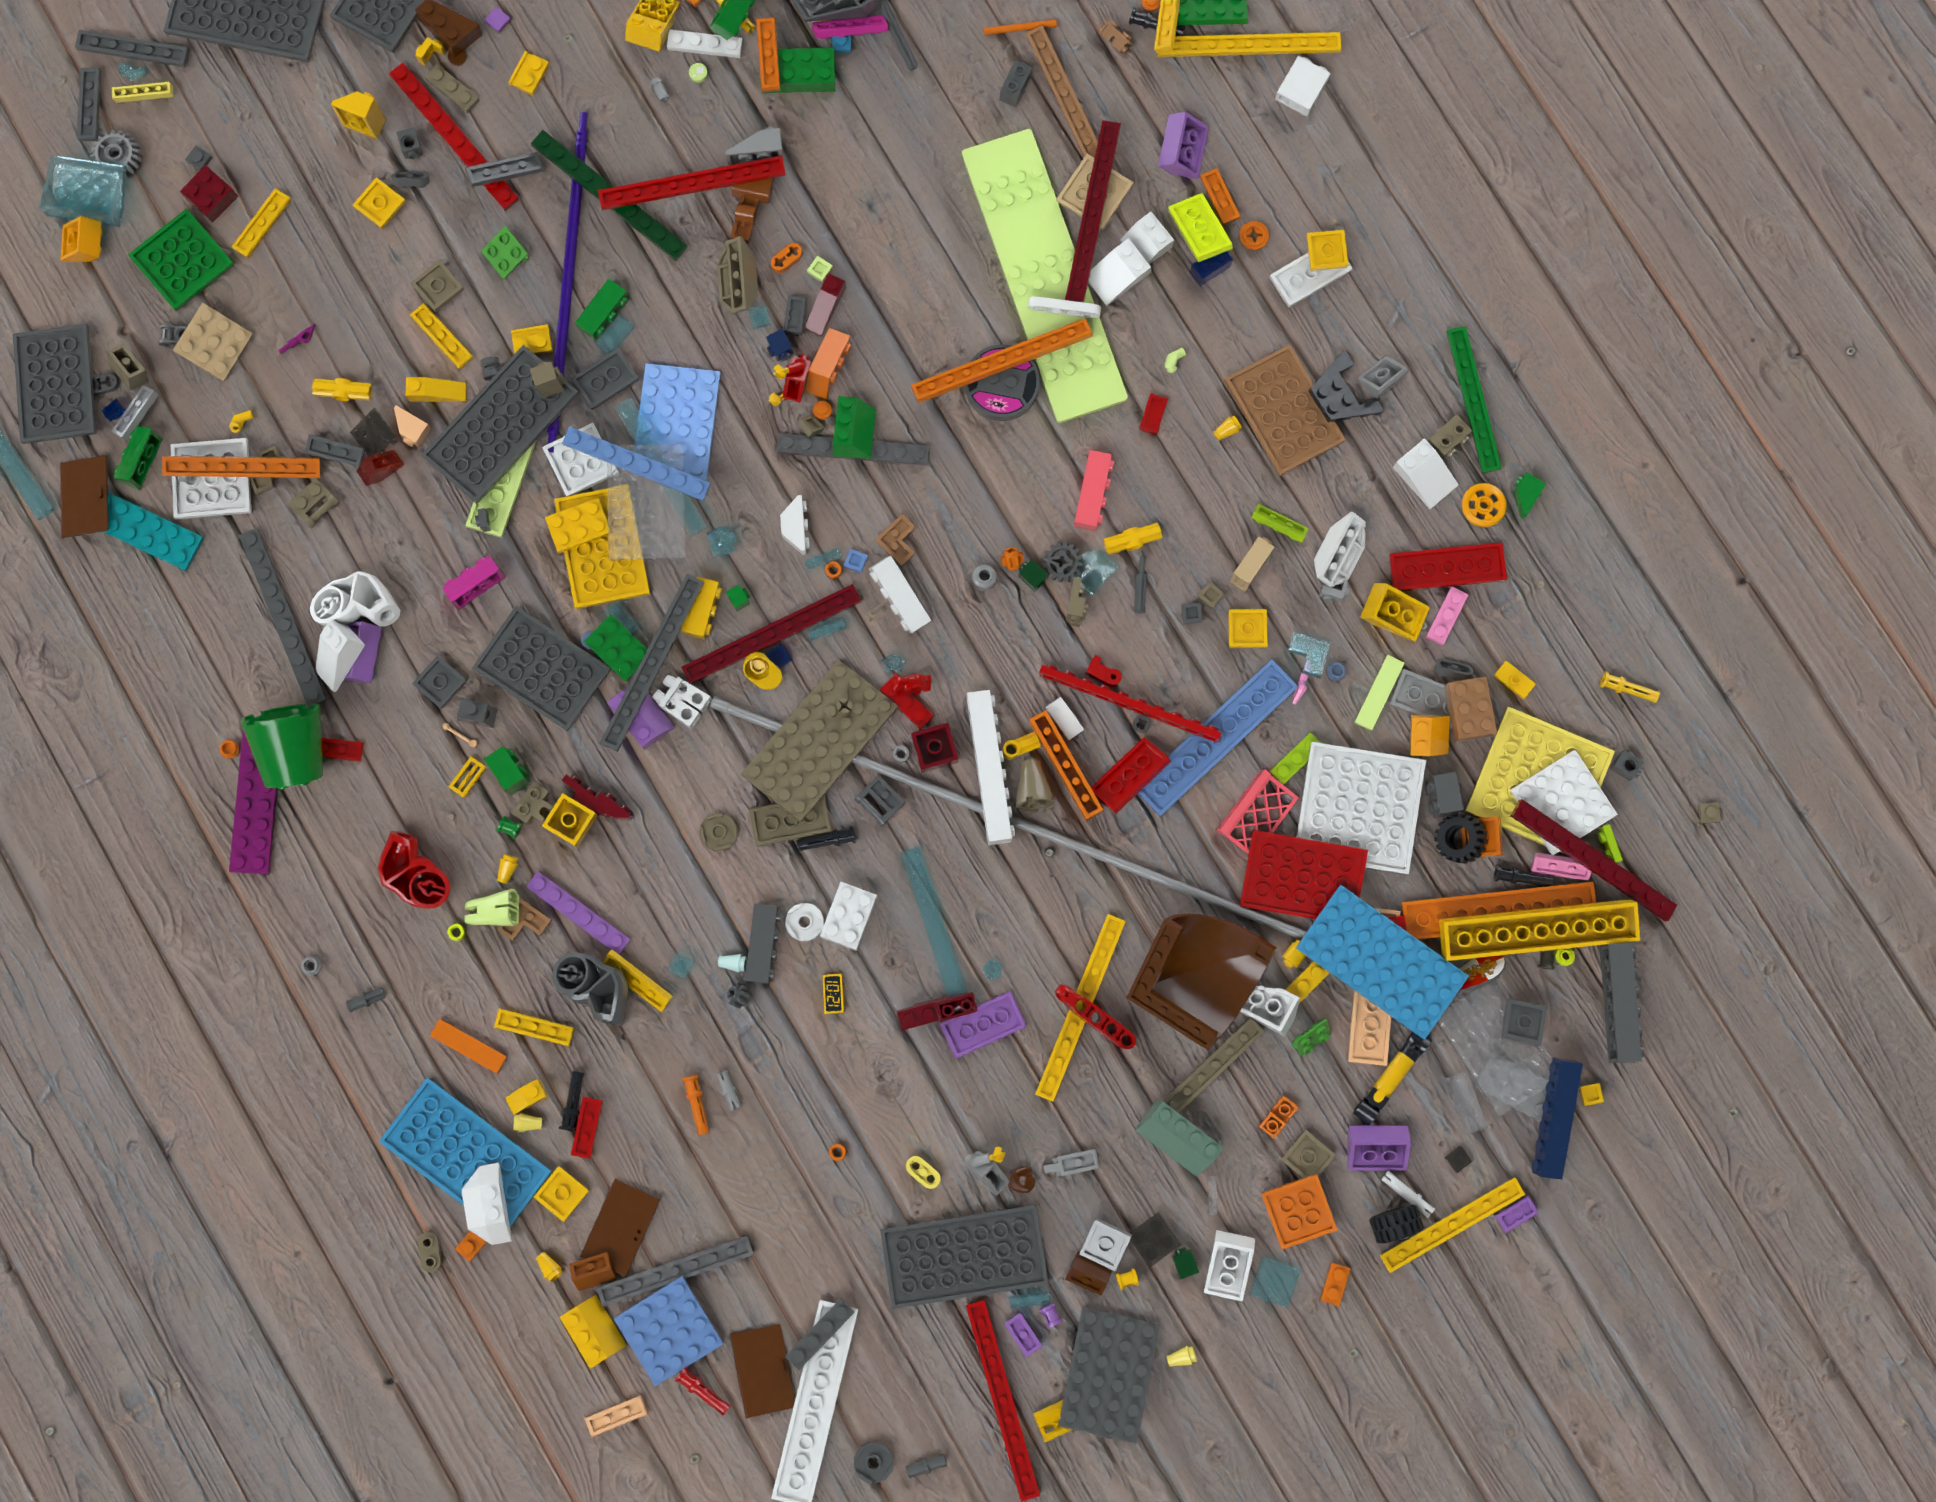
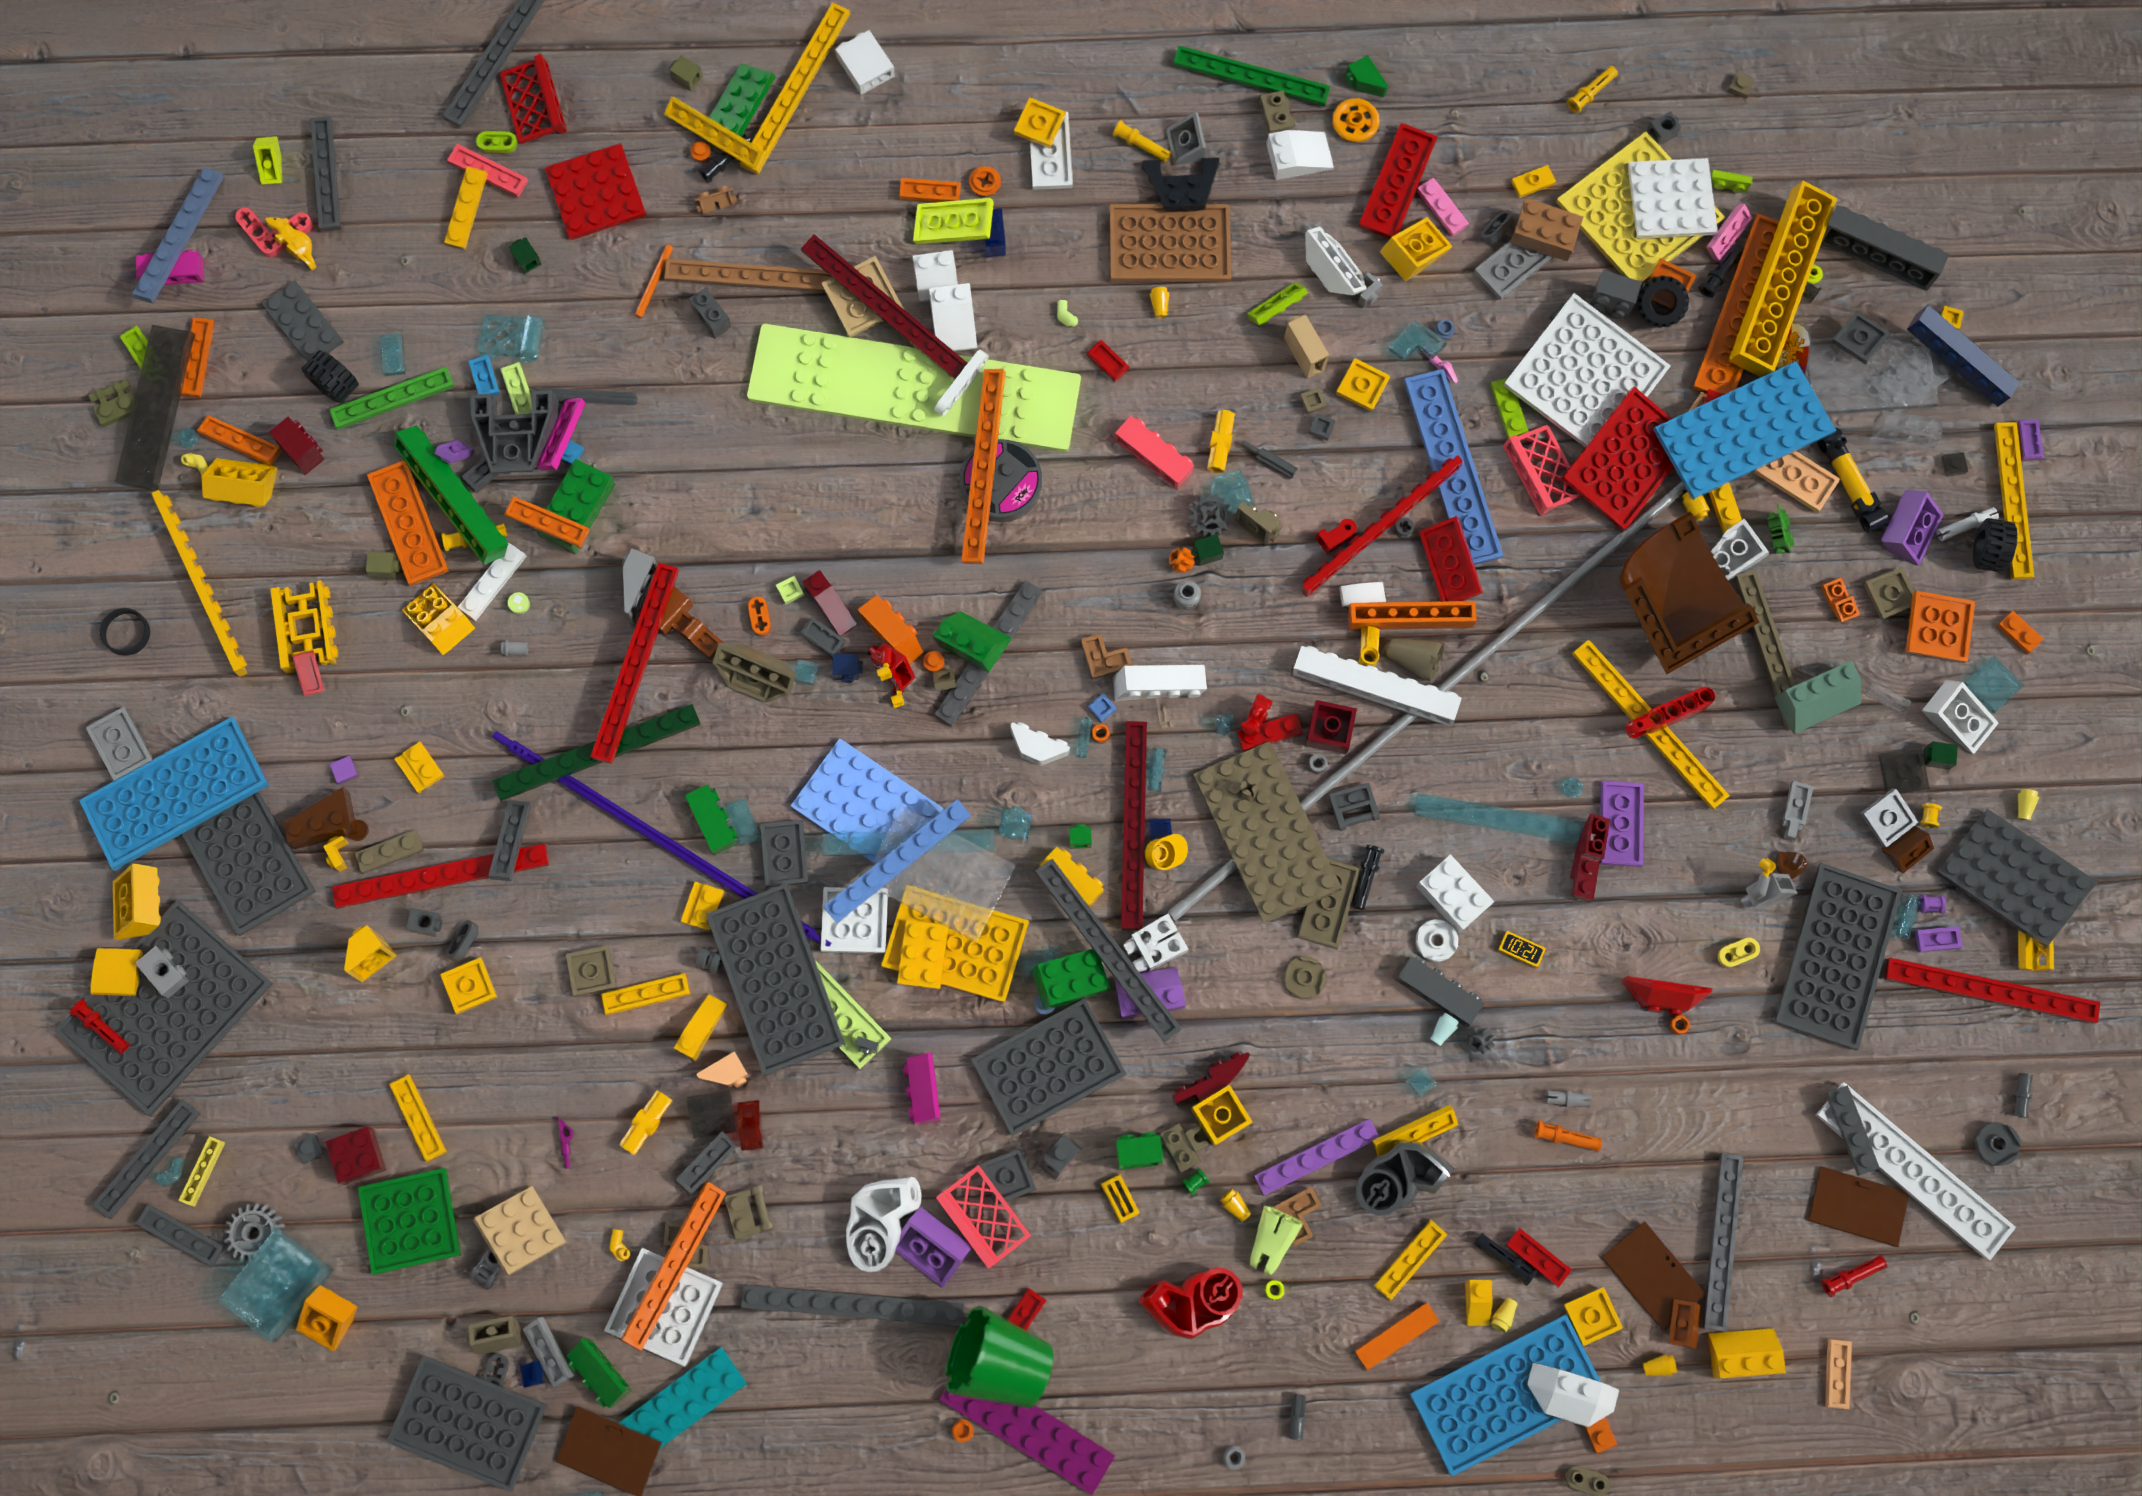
camera: 65 degrees left, 5 degrees down
(337, 653) = (927, 1264): white slope -> none
(383, 671) = (965, 1223): none -> coral fence
(473, 743) = (1087, 1176): light nougat hinge -> none
(505, 252) = (595, 885): bright green hinge -> none
(547, 379) = (761, 902): dark tan brick -> none
(668, 1330) = (1779, 1278): medium blue plate -> none
(854, 1128) = (1664, 995): none -> red wedge
(1183, 145) = (860, 196): medium lavender slope -> none
(1361, 332) = (1133, 137): none -> yellow pin
(1379, 692) = (1484, 303): yellowish green tile -> none
(1429, 735) = (1549, 280): light orange slope -> none
(1593, 860) = (1739, 200): dark red plate -> none

